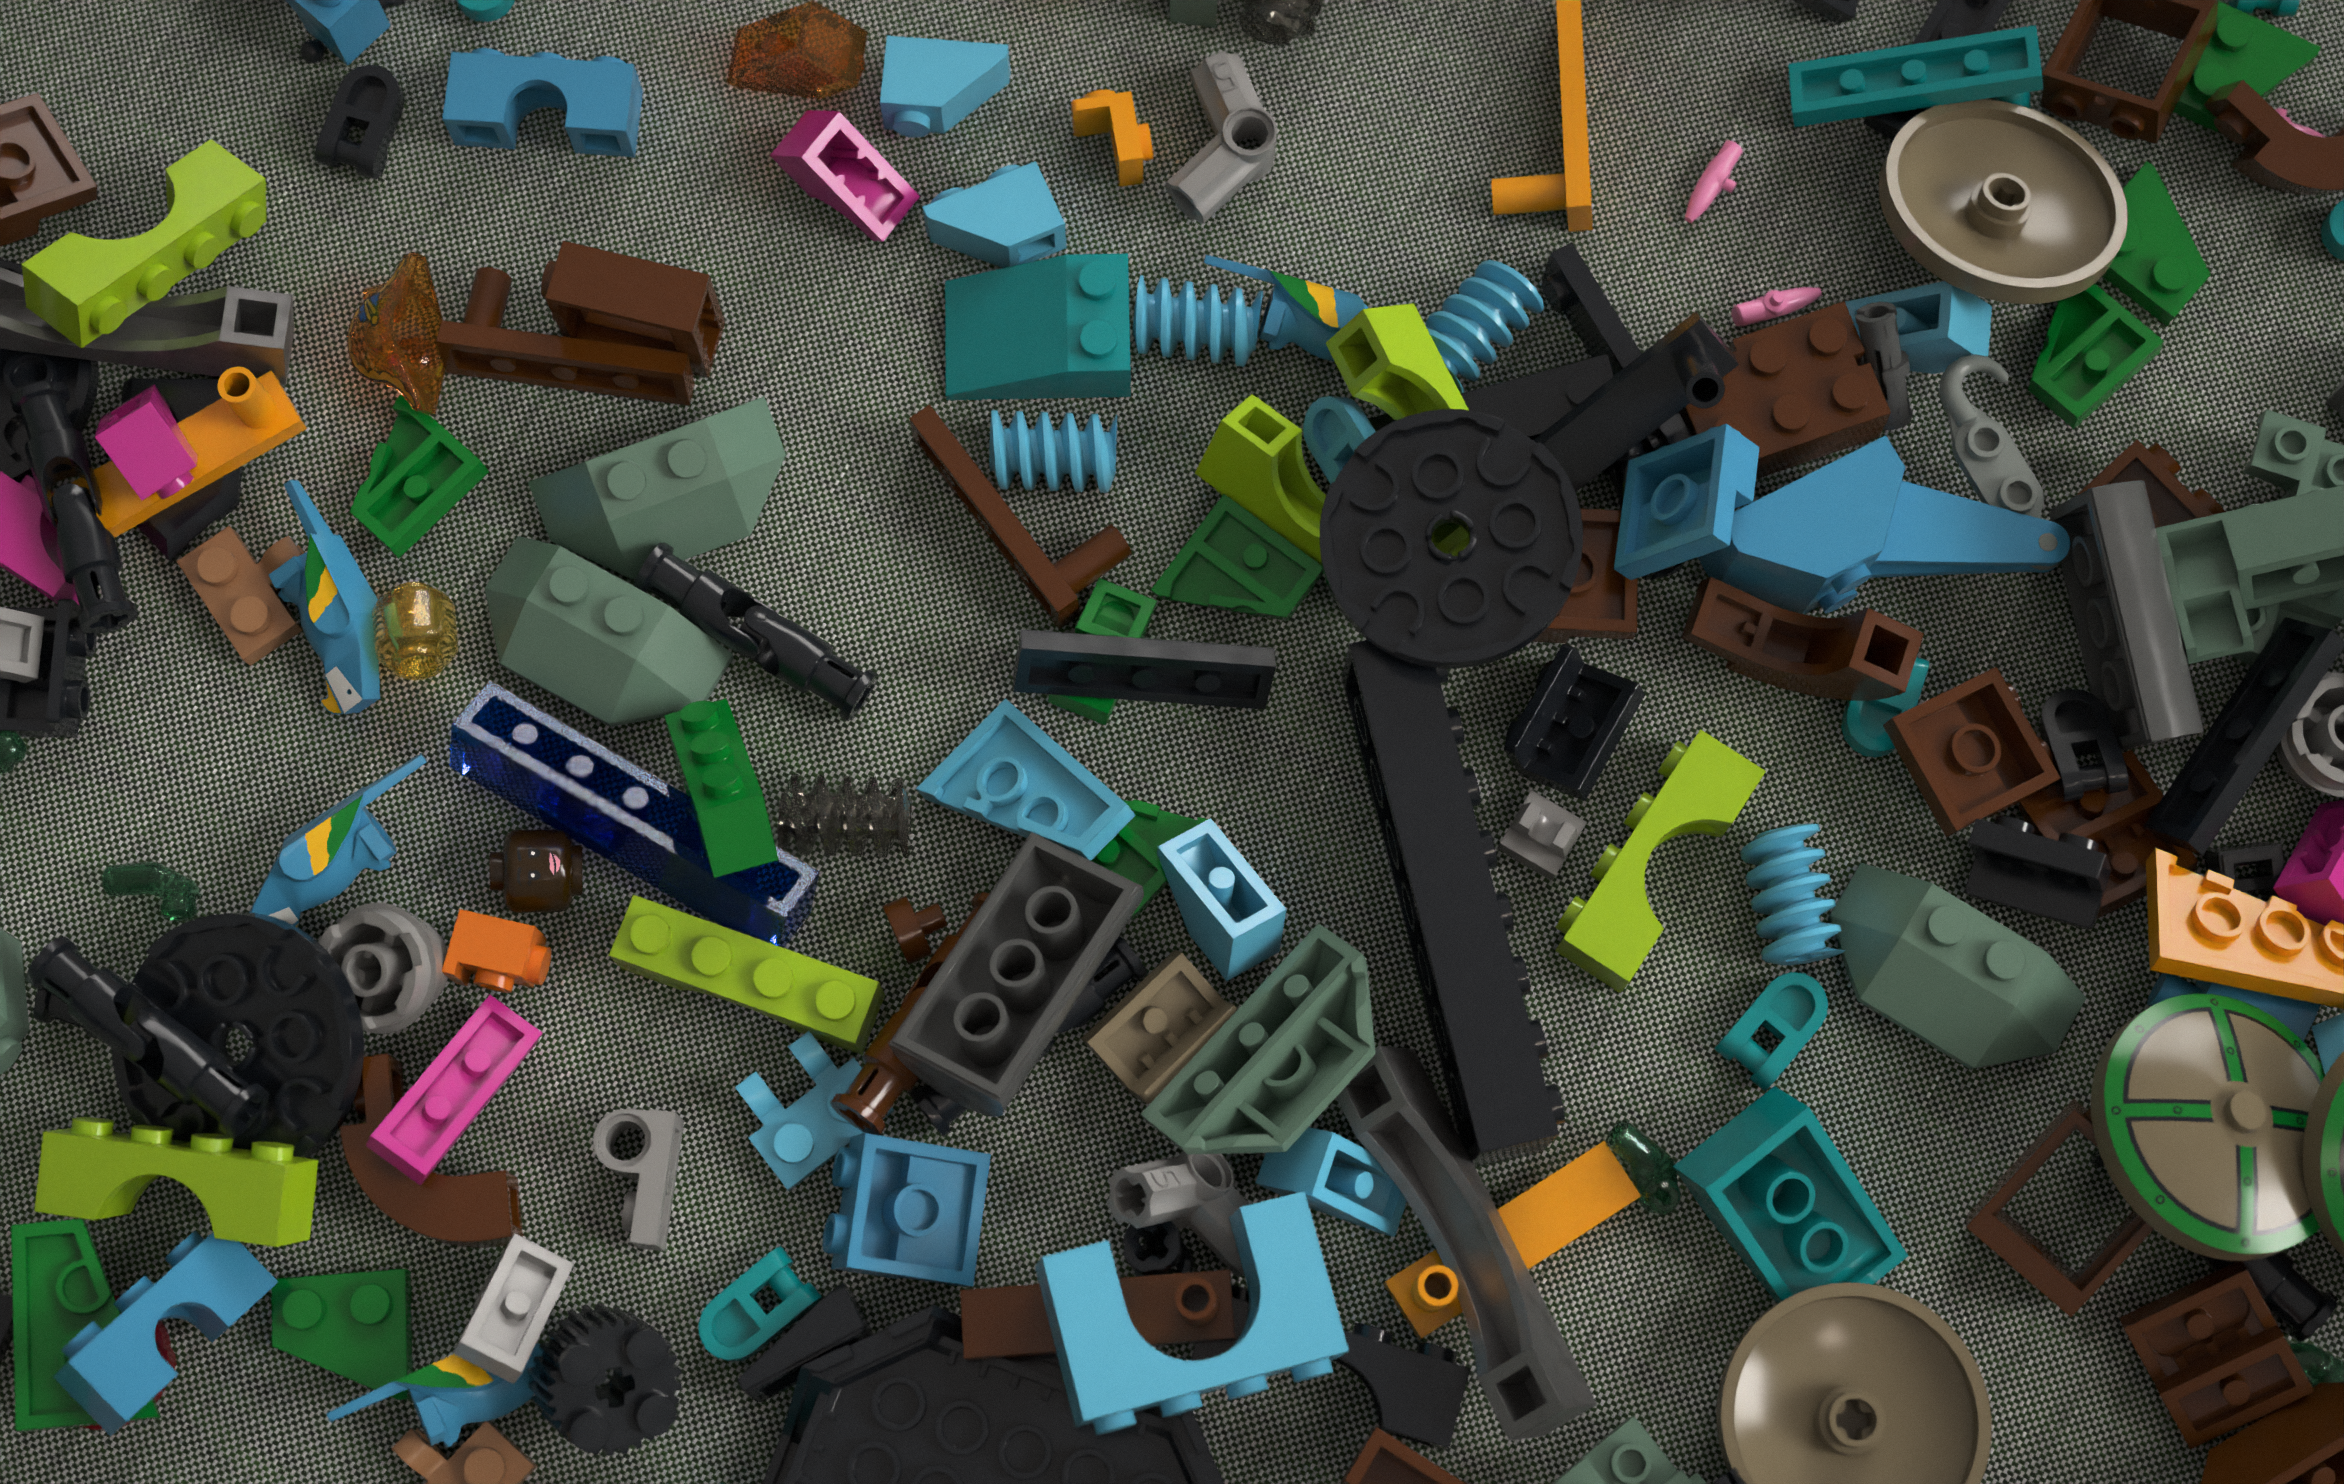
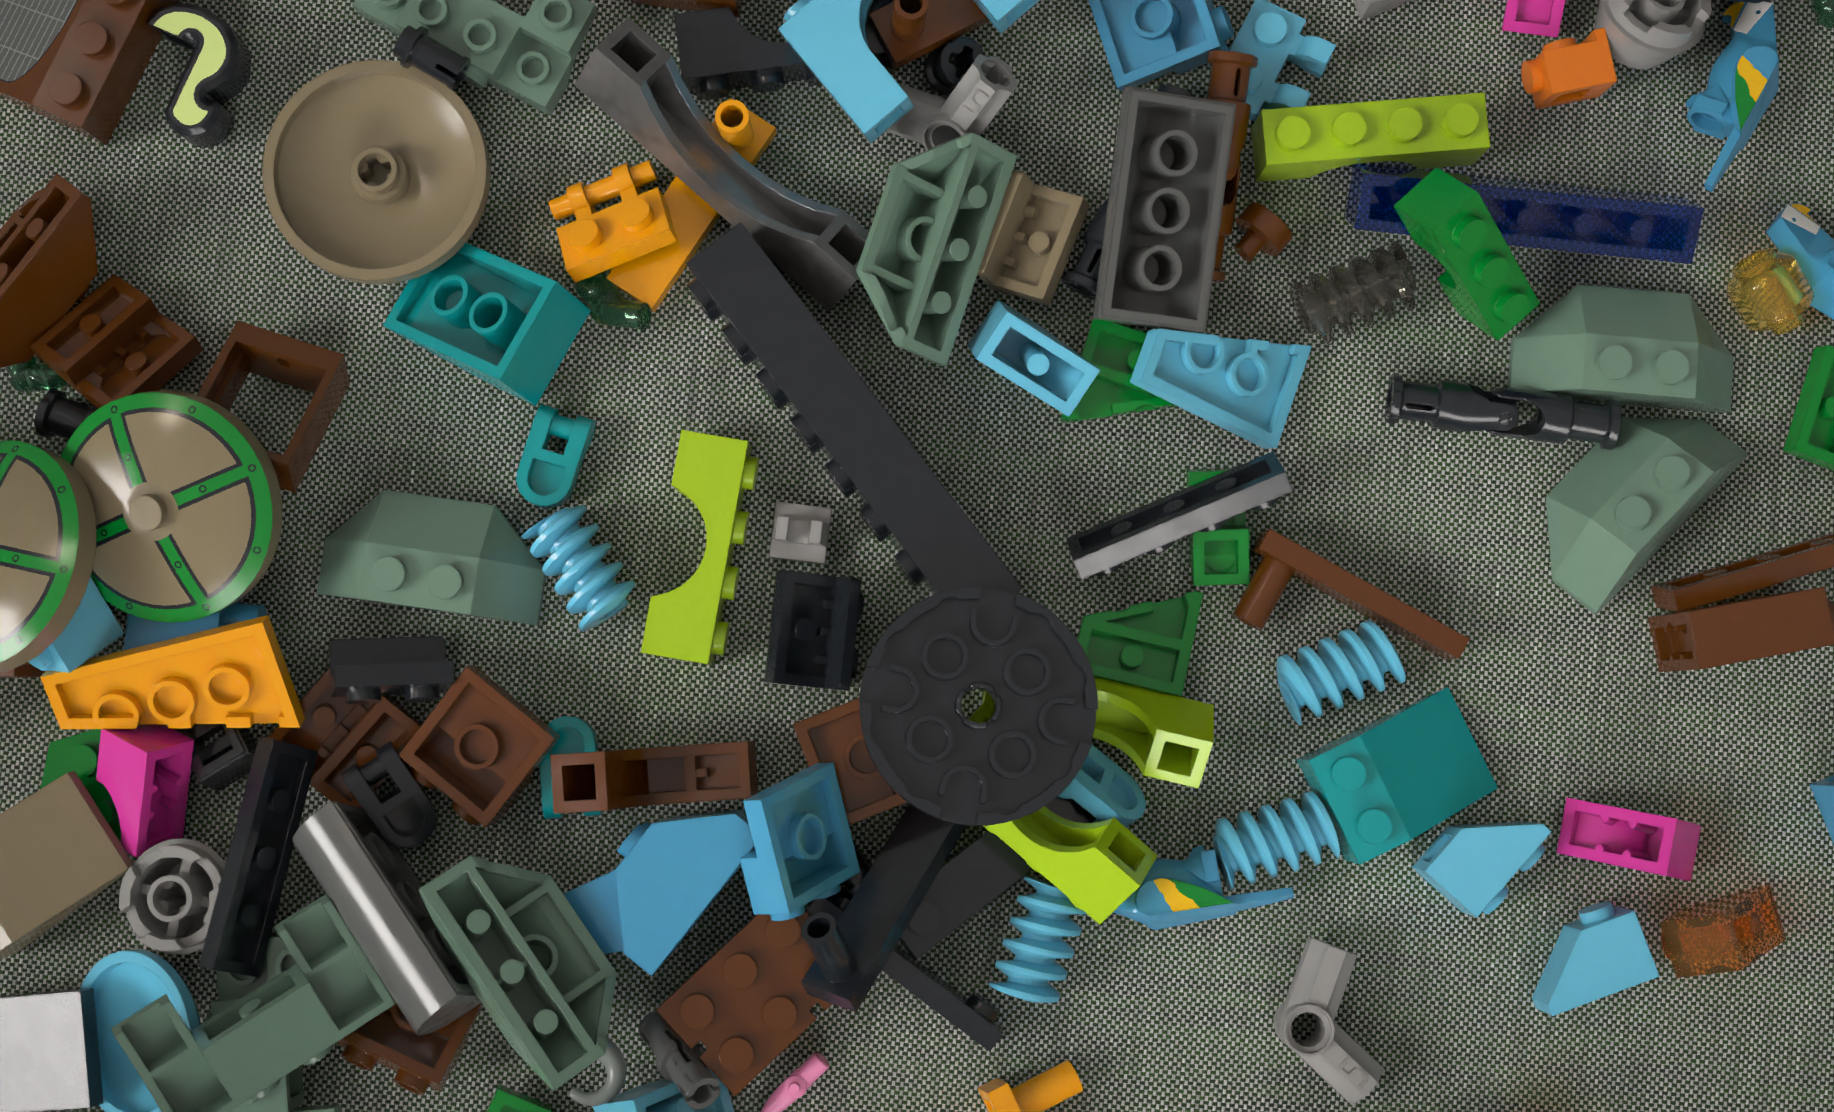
camera: 155 degrees right, 10 degrees up
(537, 870) = (1572, 146): dark brown head -> none
(1115, 113) = (1406, 982): light orange bracket -> none
(1336, 1180) = (845, 177): medium azure slope -> none
(1610, 1233) = (617, 232): none -> light orange plate
(2004, 494) = (526, 962): none -> sand green wedge

